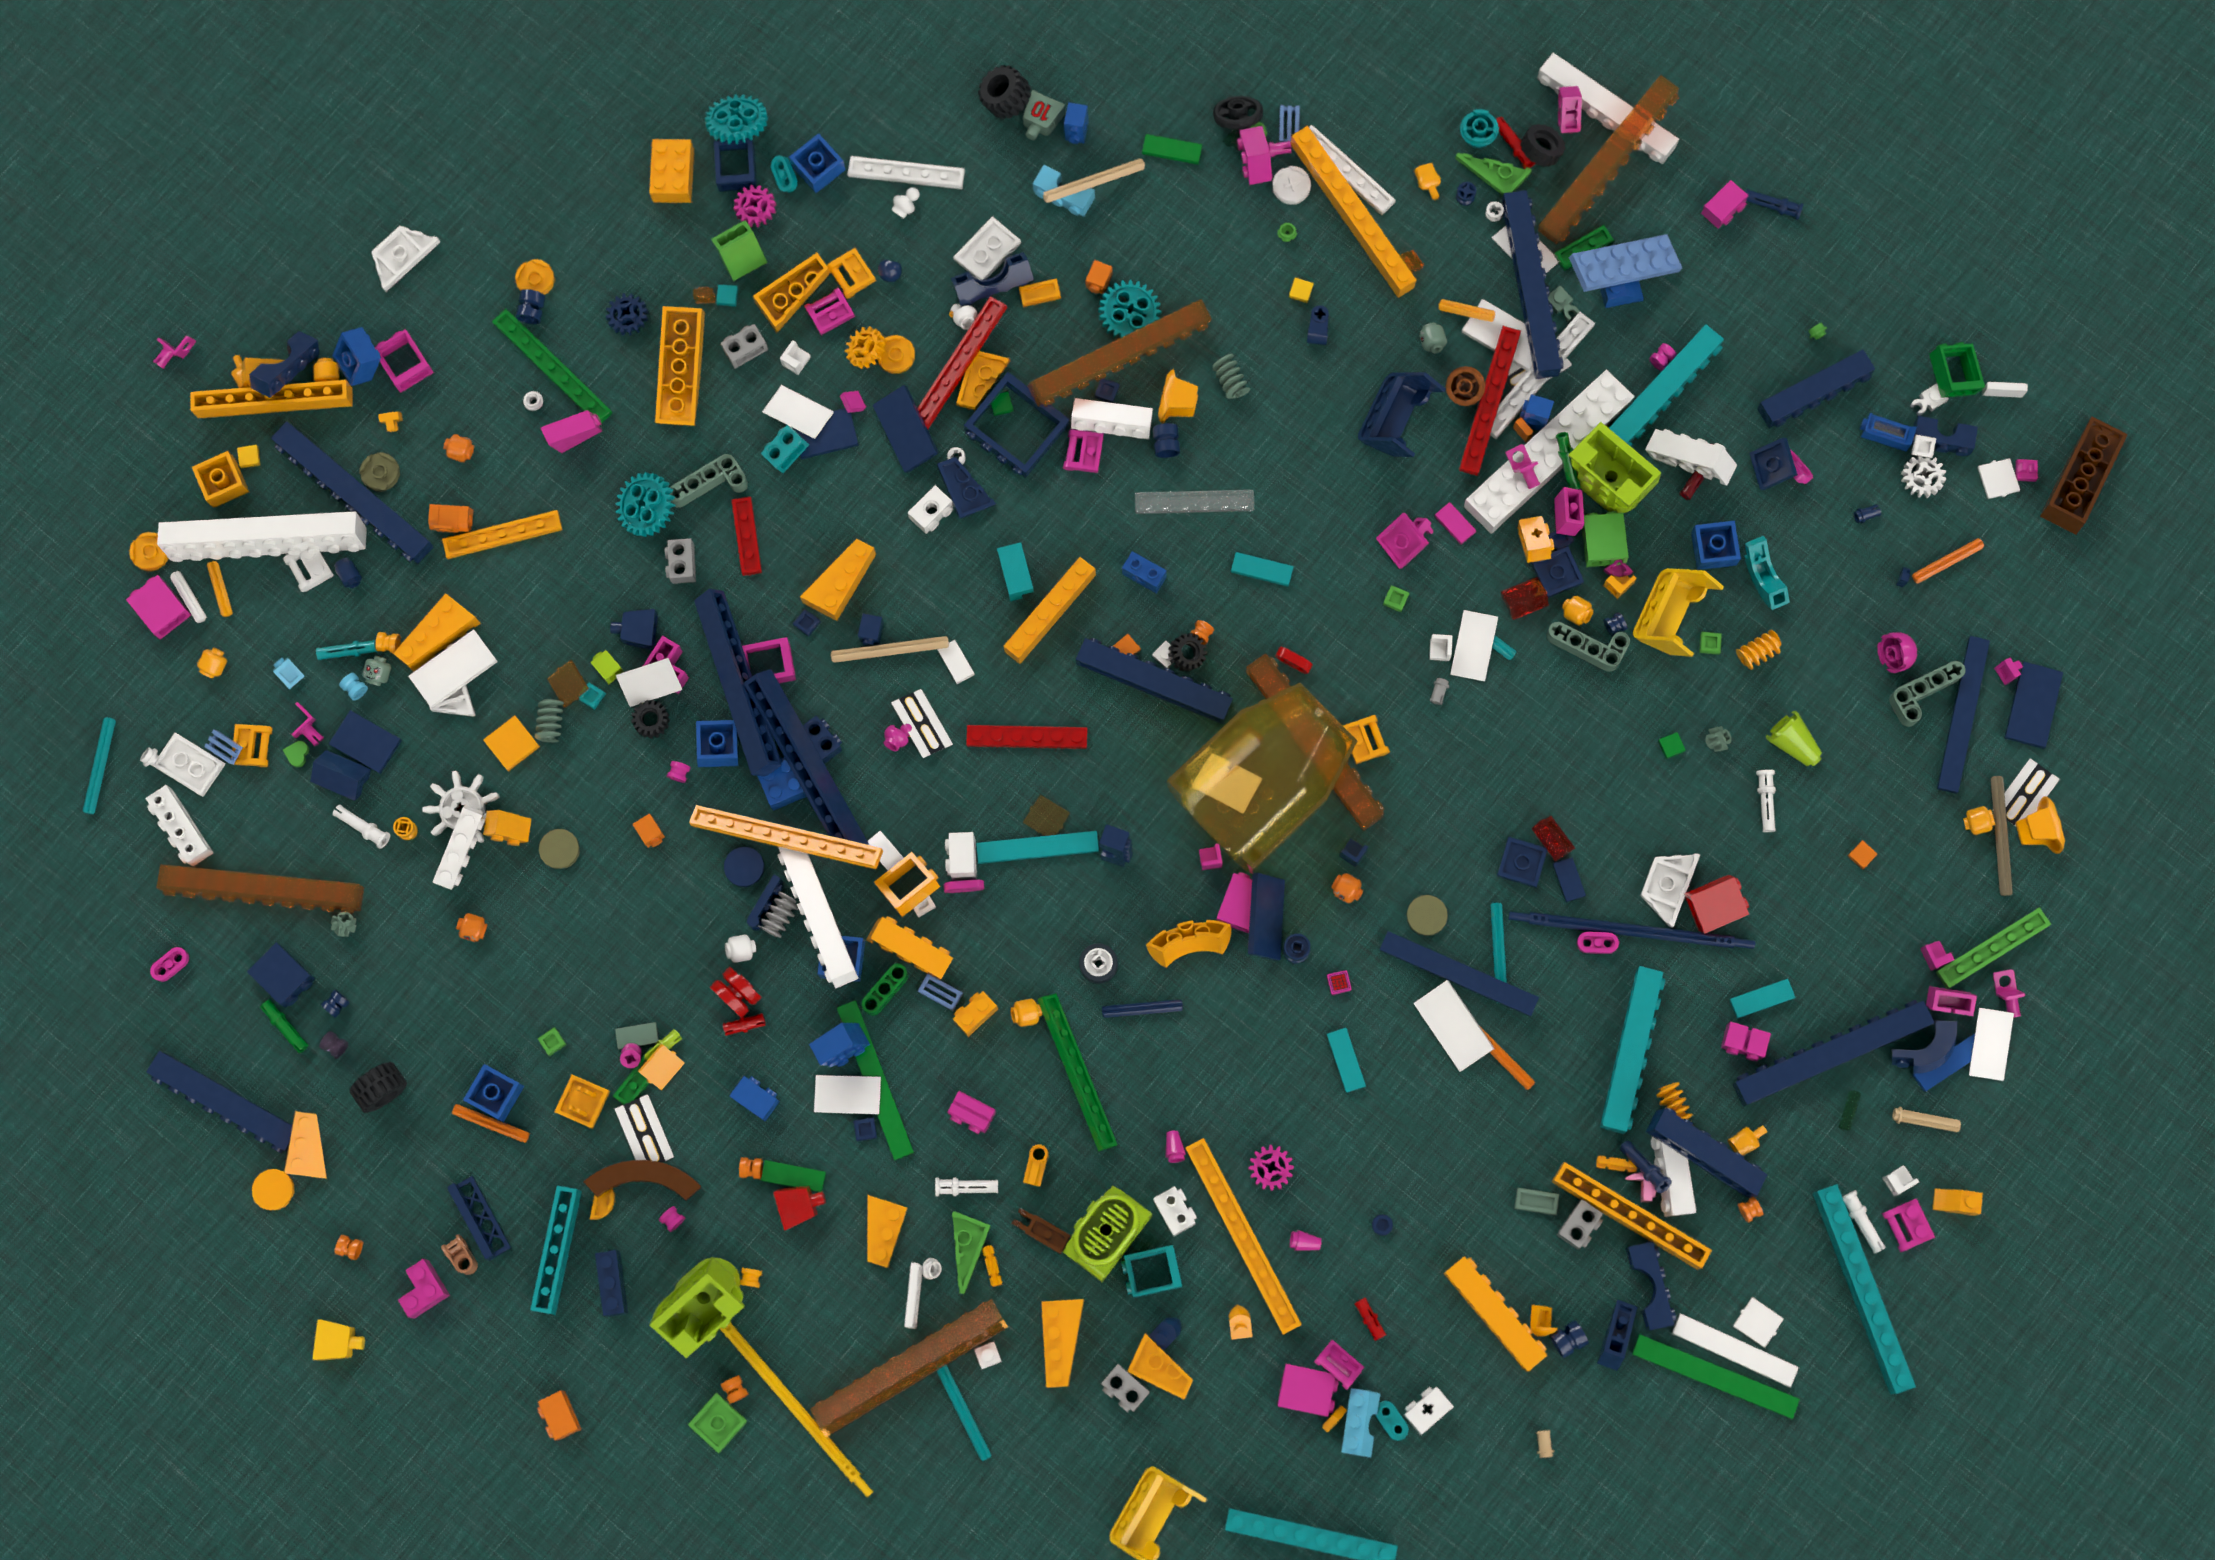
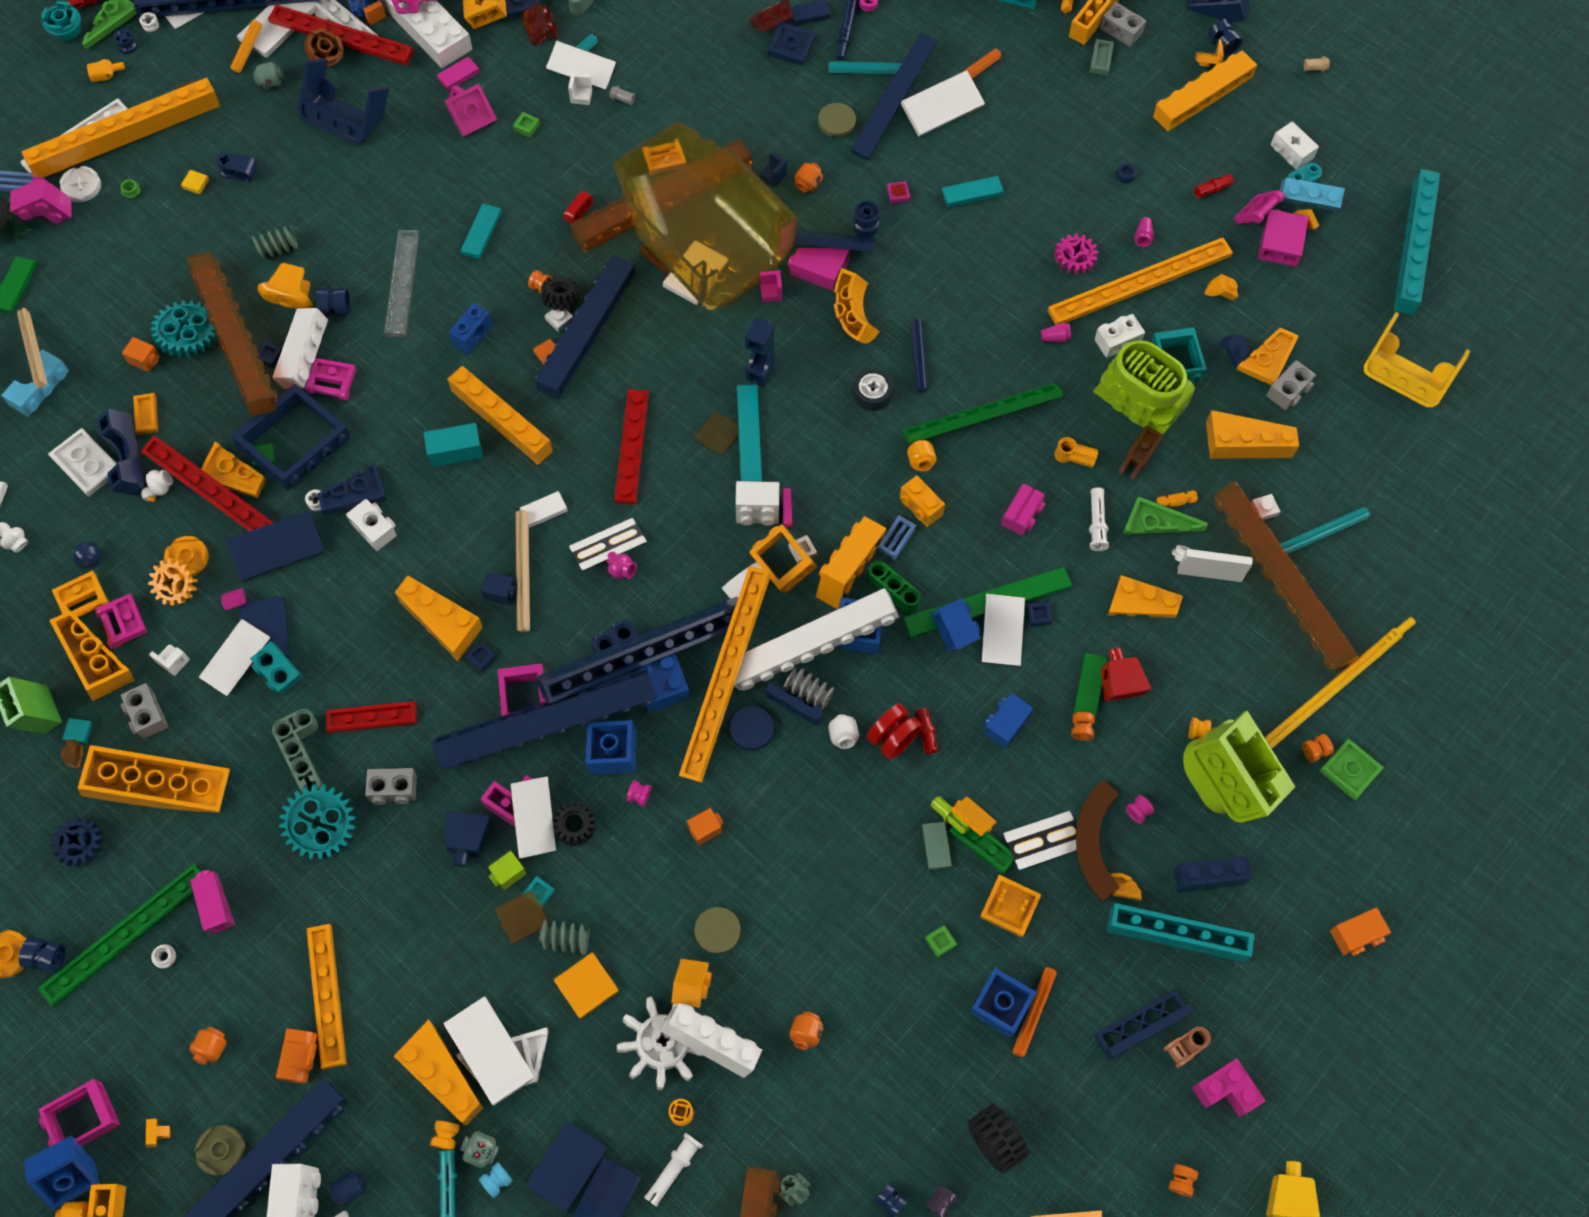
camera: 95 degrees left, 10 degrees down
(630, 1050) = (960, 849): dark pink wheel -> none

